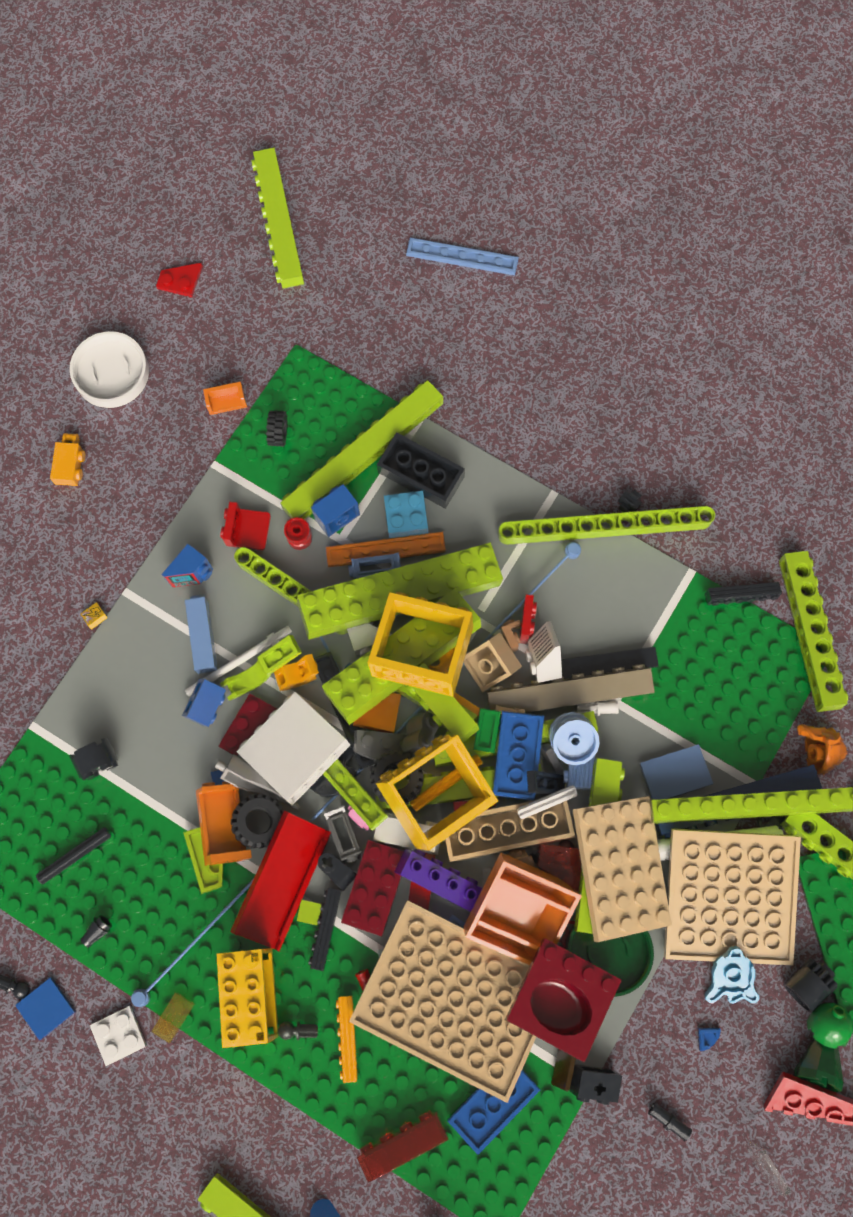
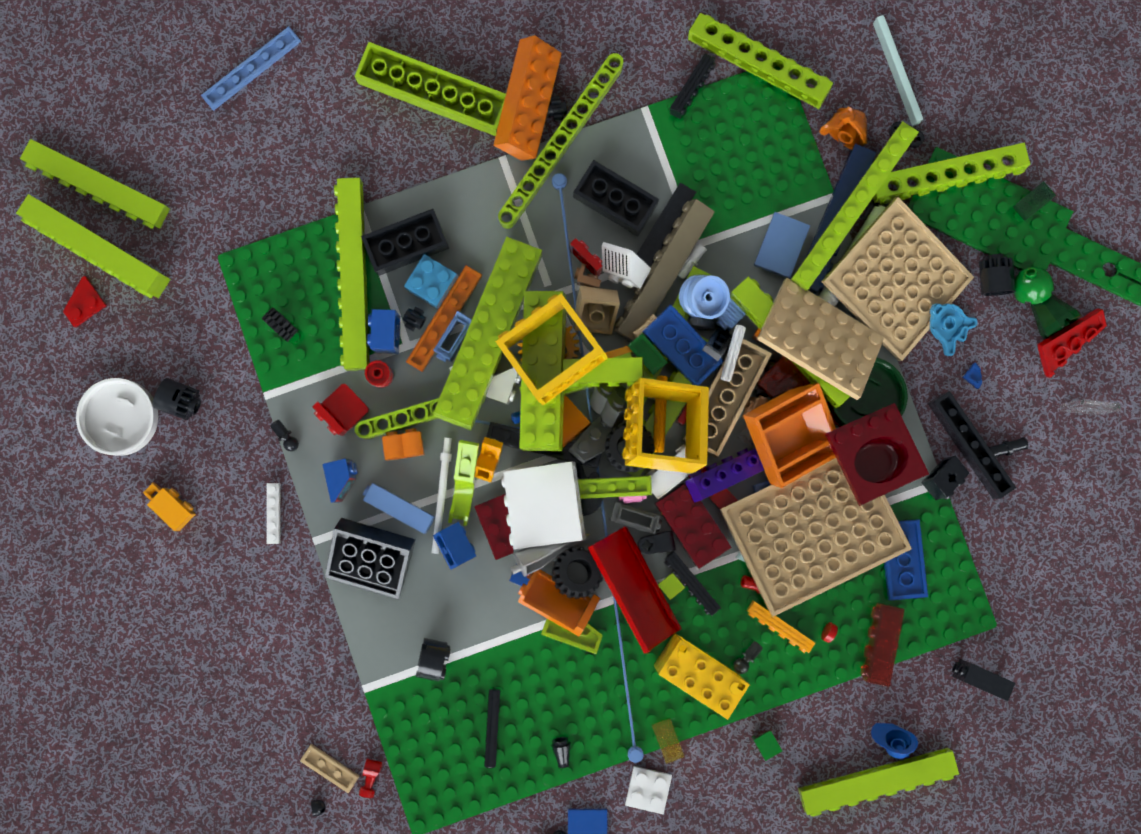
camera: 55 degrees left, 10 degrees up
(93, 615) = (315, 578): yellow tile -> none
(122, 542) = (273, 513): none -> white piece
(142, 643) = (369, 558): none -> black slope
(157, 400) = (177, 399): none -> black gear
(189, 511) = (290, 443): none -> black axle
(225, 398) = (218, 345): orange panel -> none
(227, 252) = (92, 247): none -> lime brick
(234, 1111) = (767, 745): none -> green panel
(255, 597) = (403, 445): none -> orange brick
(365, 525) = (414, 318): none -> black gear
(375, 1087) = (829, 632): none -> red tile
(562, 398) = (430, 88): none -> lime brick
(563, 1070) = (920, 493): dark brown slope -> none
(596, 604) = (615, 198): none -> black brick
(616, 472) = (527, 98): none -> orange brick
(643, 1085) = (971, 445): none -> black brick

